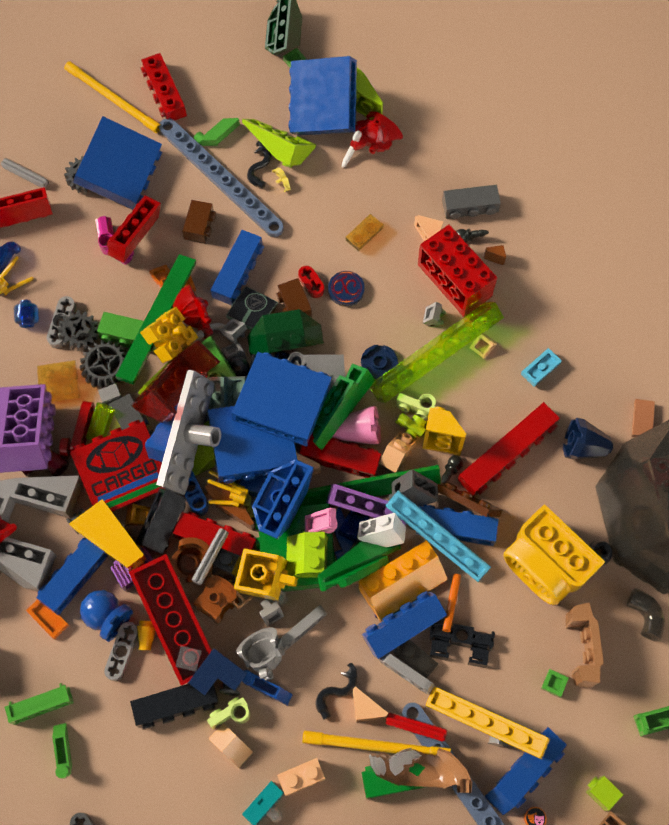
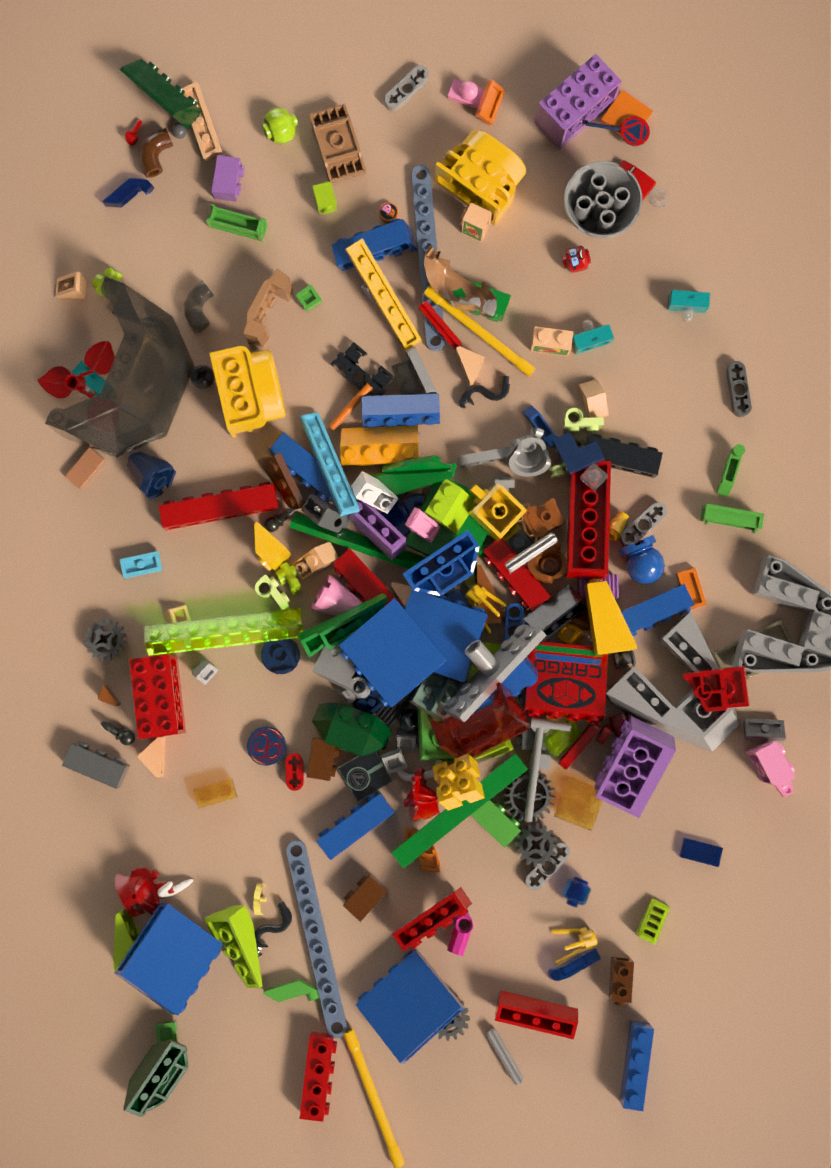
camera: 155 degrees left, 15 degrees up
(123, 418) = (541, 726): none -> light grey bar
(228, 652) = (557, 471): none -> yellowish green bush
(522, 288) = (100, 632): none -> dark grey gear

